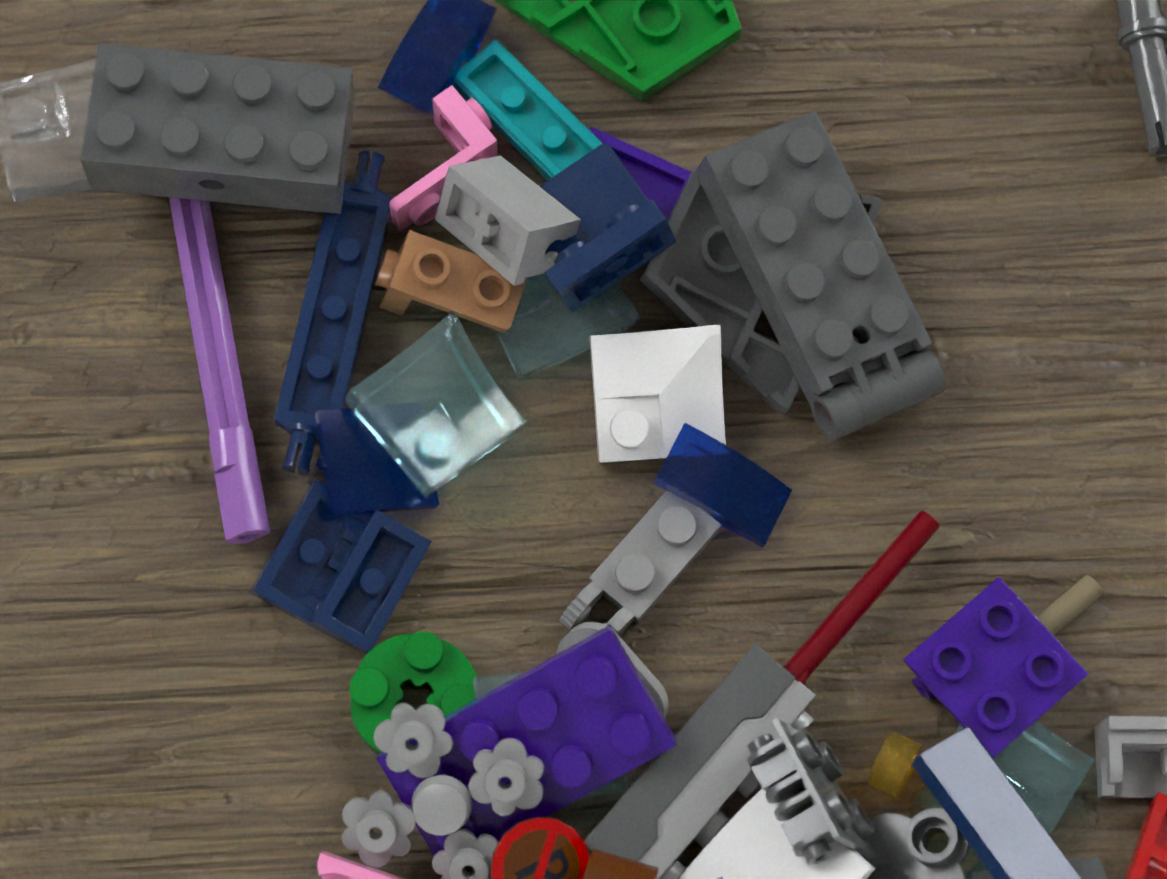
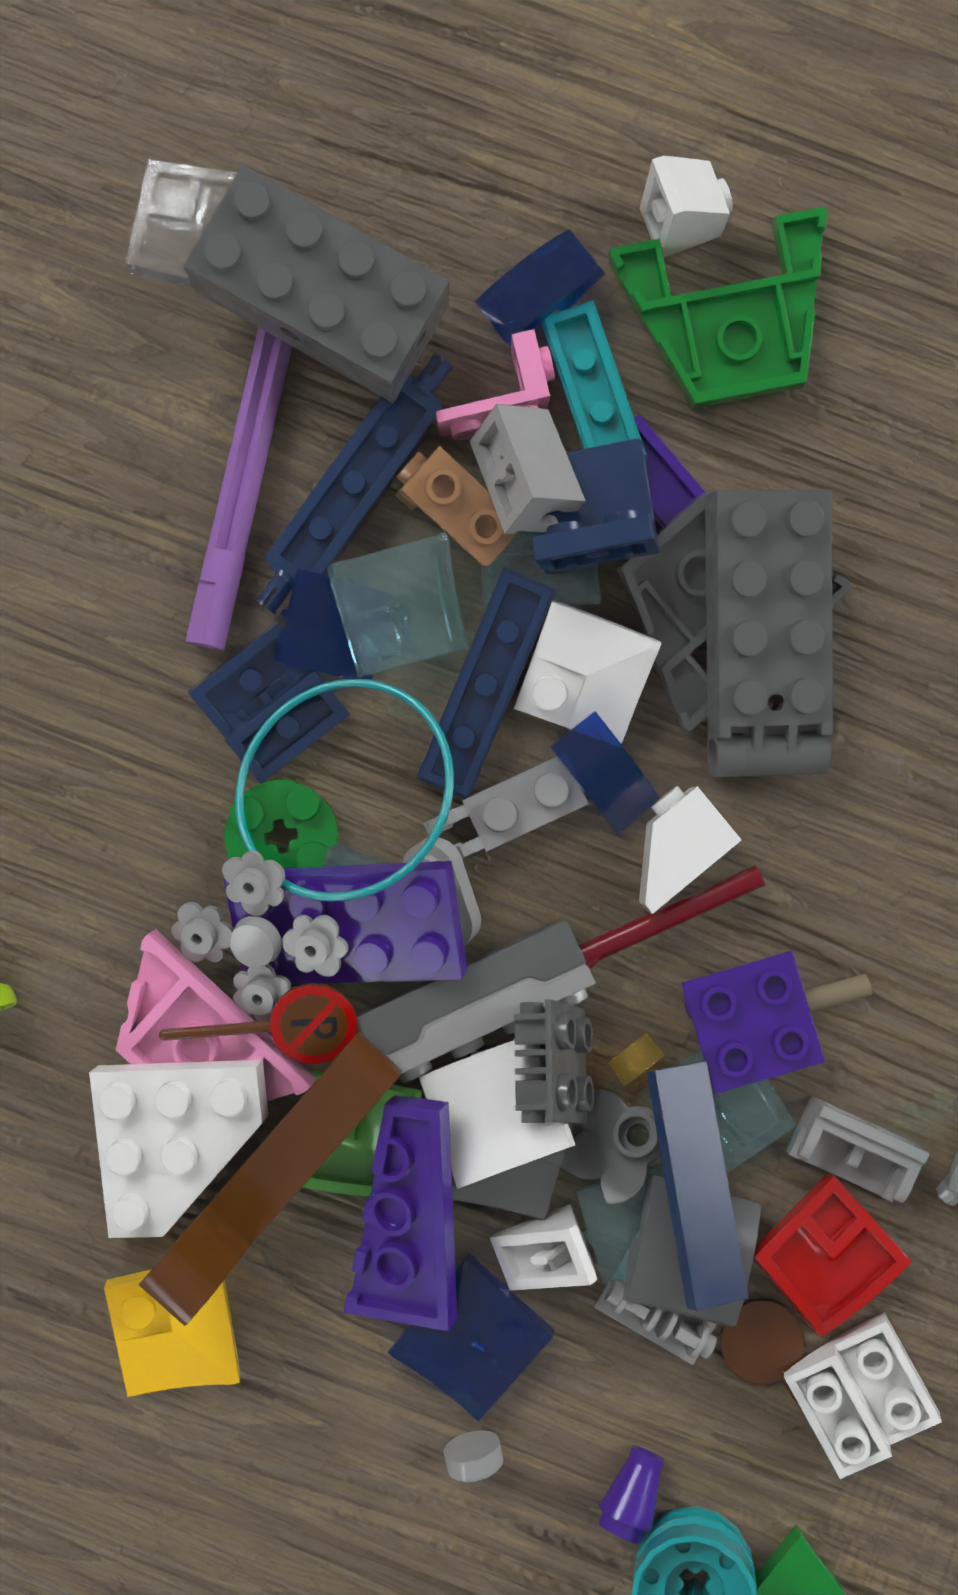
camera: 25 degrees right, 15 degrees up
(533, 694) = (441, 820): none -> teal piece
(560, 450) = (488, 680): none -> dark blue tile
(834, 522) = (681, 844): none -> white slope

